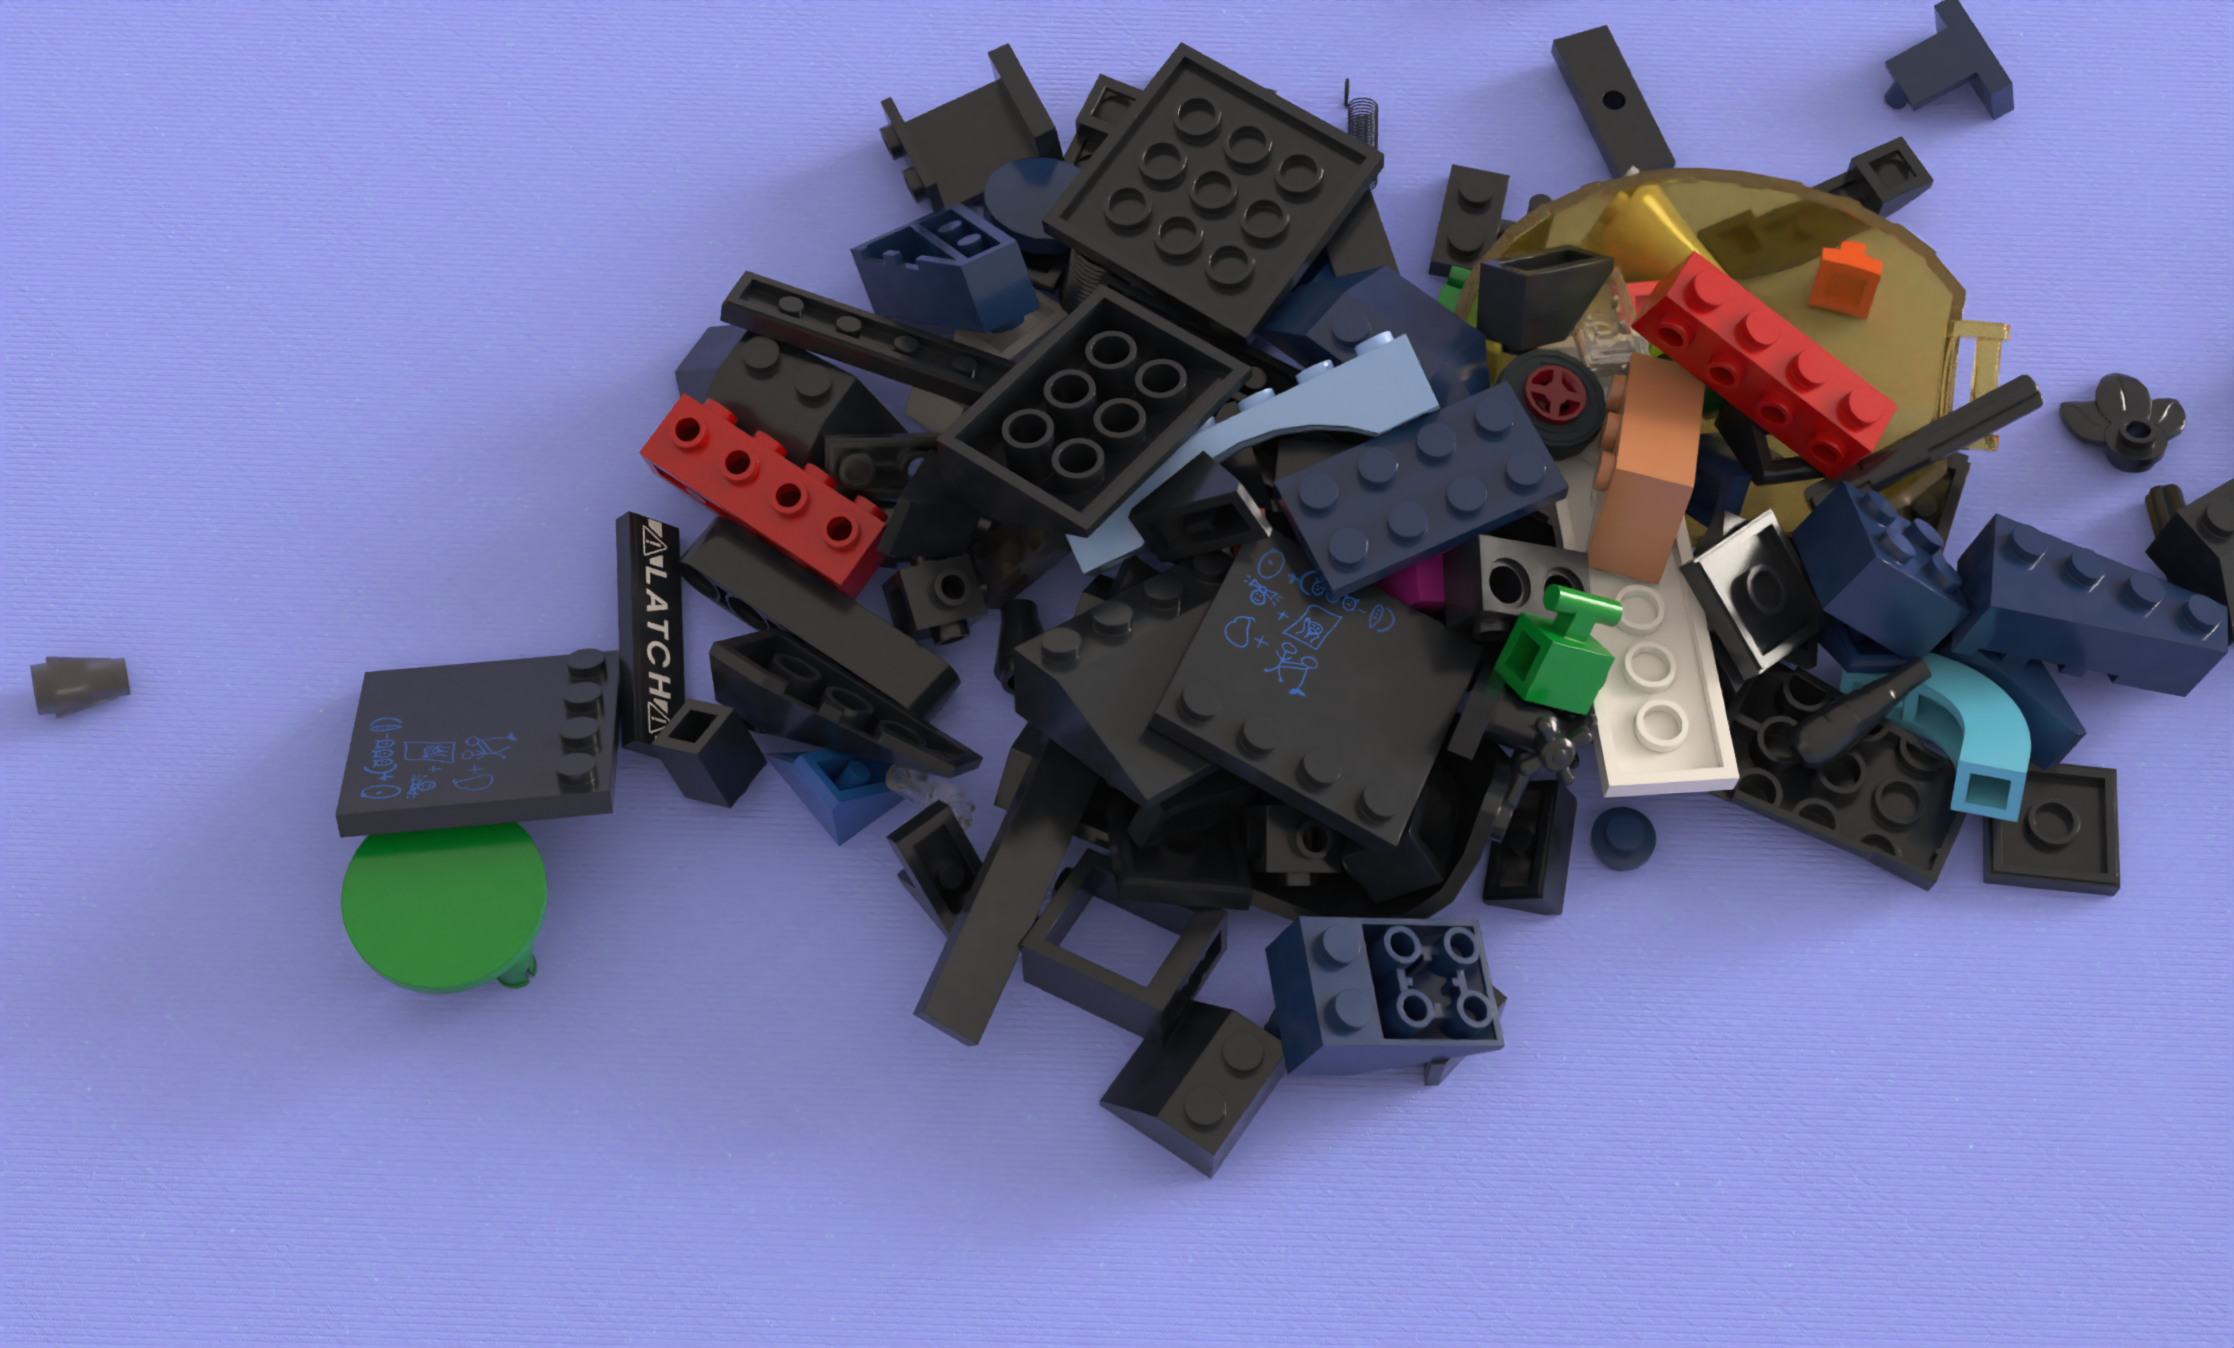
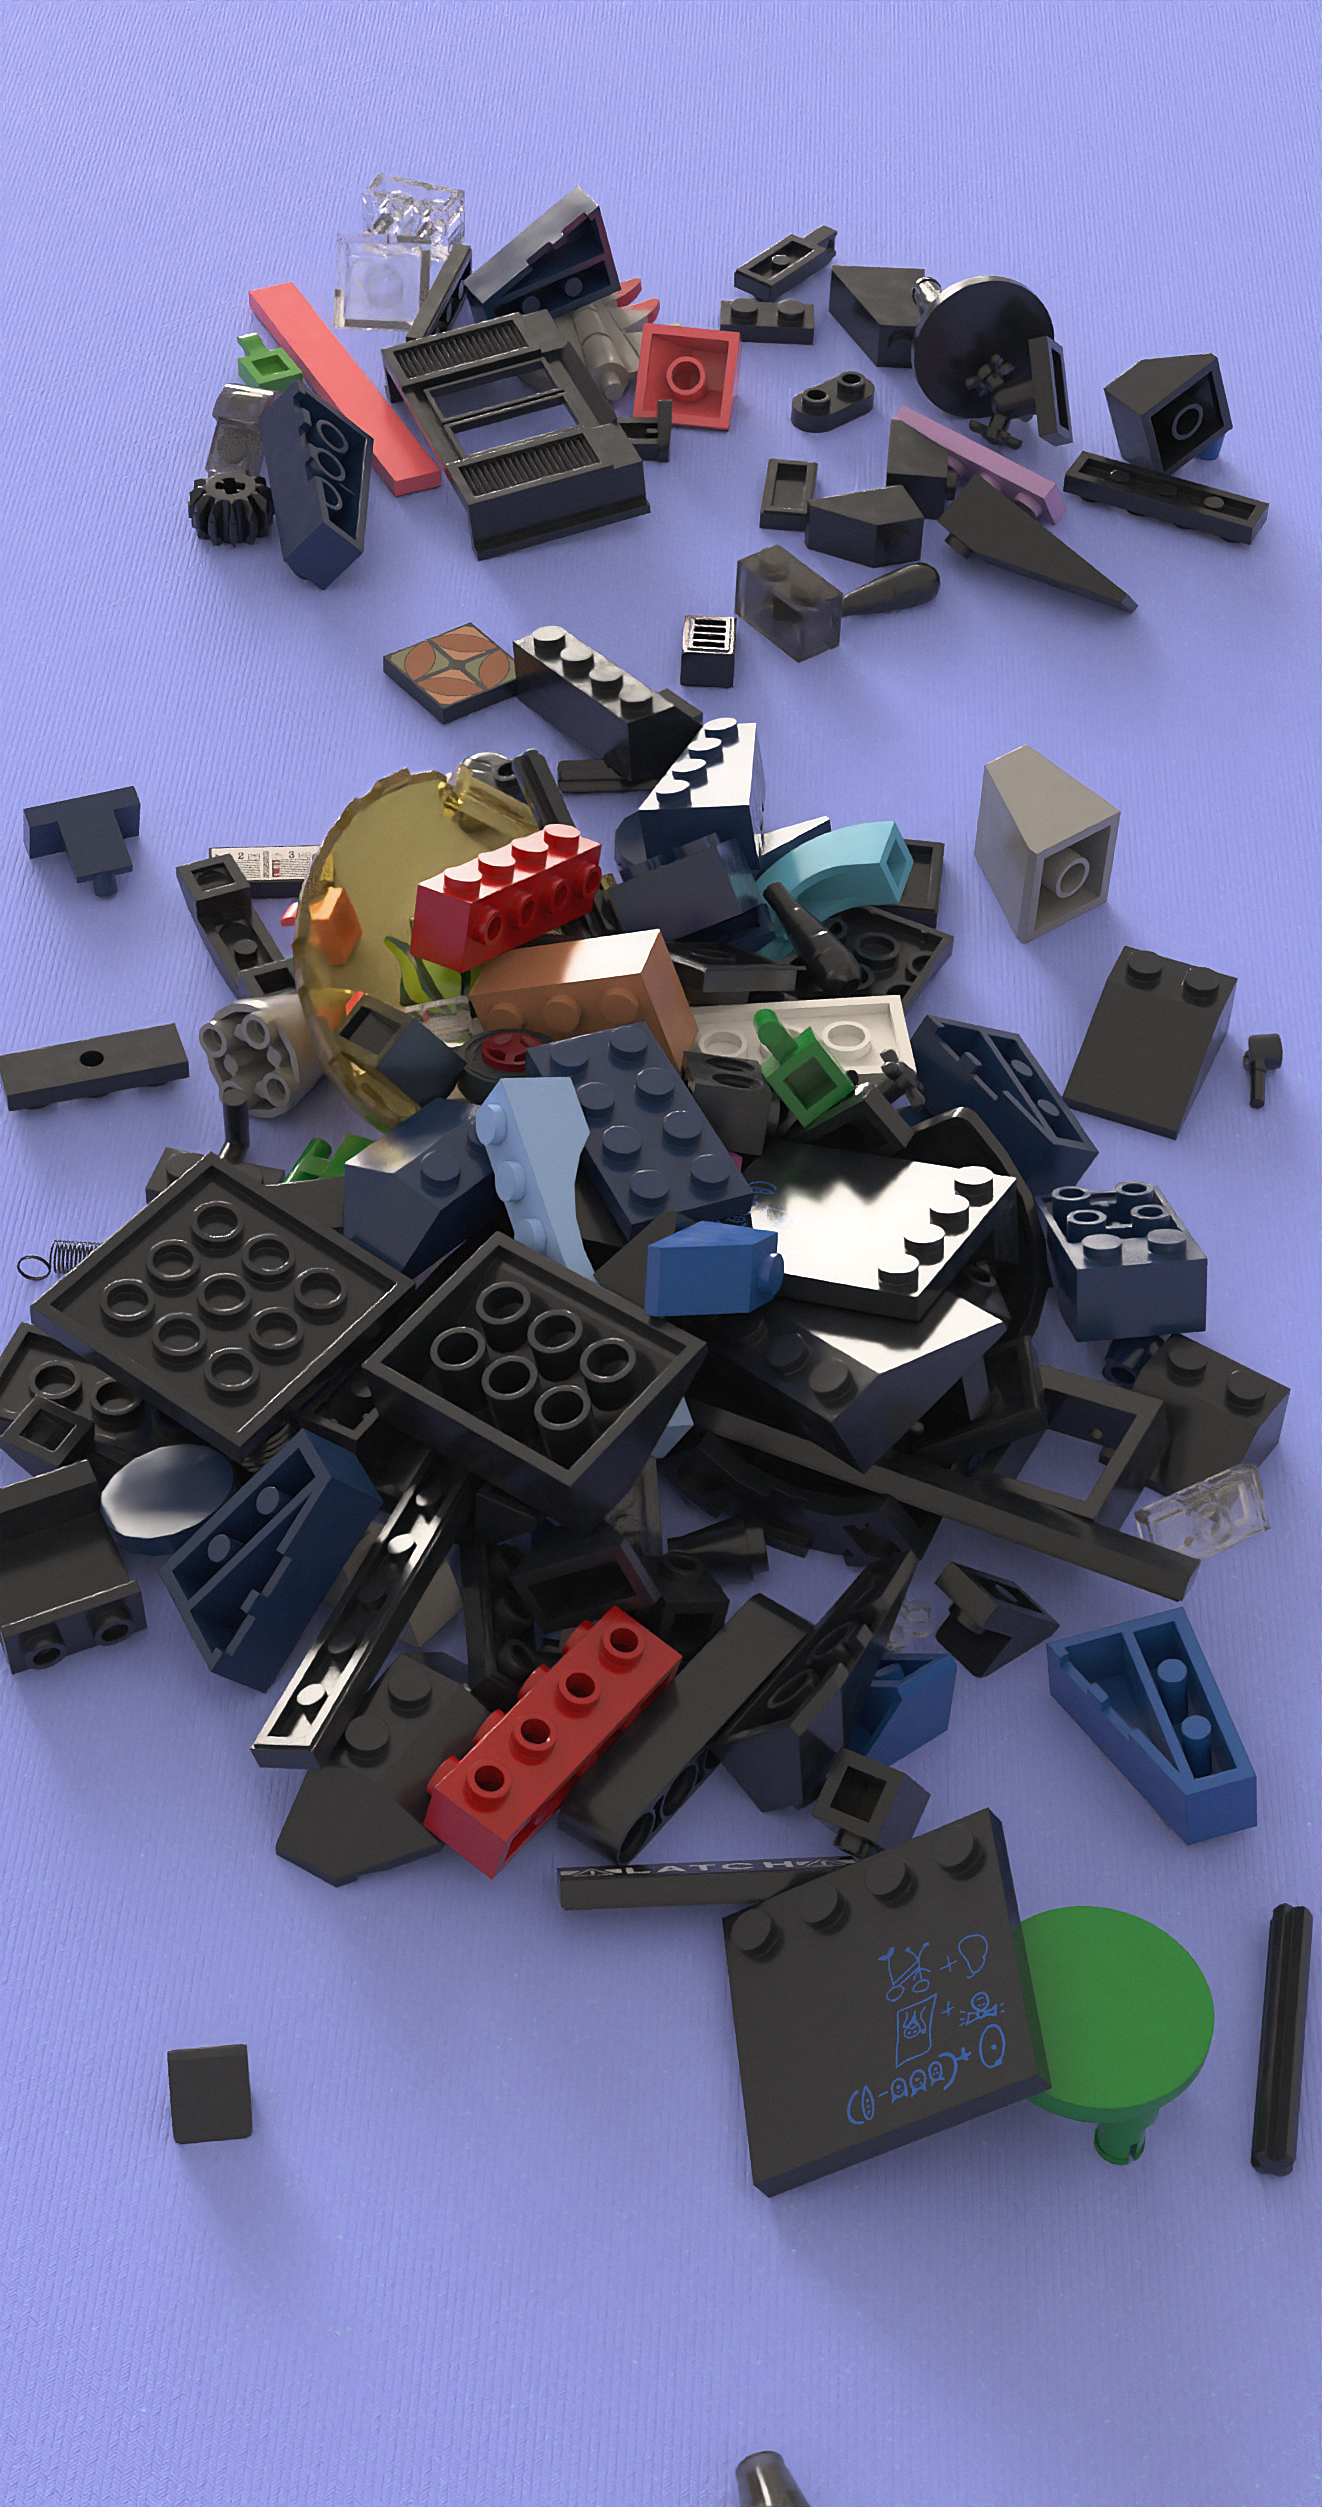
camera: 90 degrees left, 20 degrees down
(468, 297) = (210, 2093): none -> black slope
(485, 1096) = (1282, 2041): none -> black axle
(801, 1011) = (1160, 1720): none -> blue wedge
(1072, 1076) = (1208, 1514): none -> clear plate
(1184, 533) = (712, 1270): none -> blue slope
(1630, 901) = (1009, 1092): none -> dark blue wedge
(1787, 1086) = (1151, 1042): none -> black slope
(1800, 1211) = (1263, 1053): none -> black hand
(1947, 224) = (272, 869): none -> tile
(2093, 966) = (1043, 842): none -> light grey slope

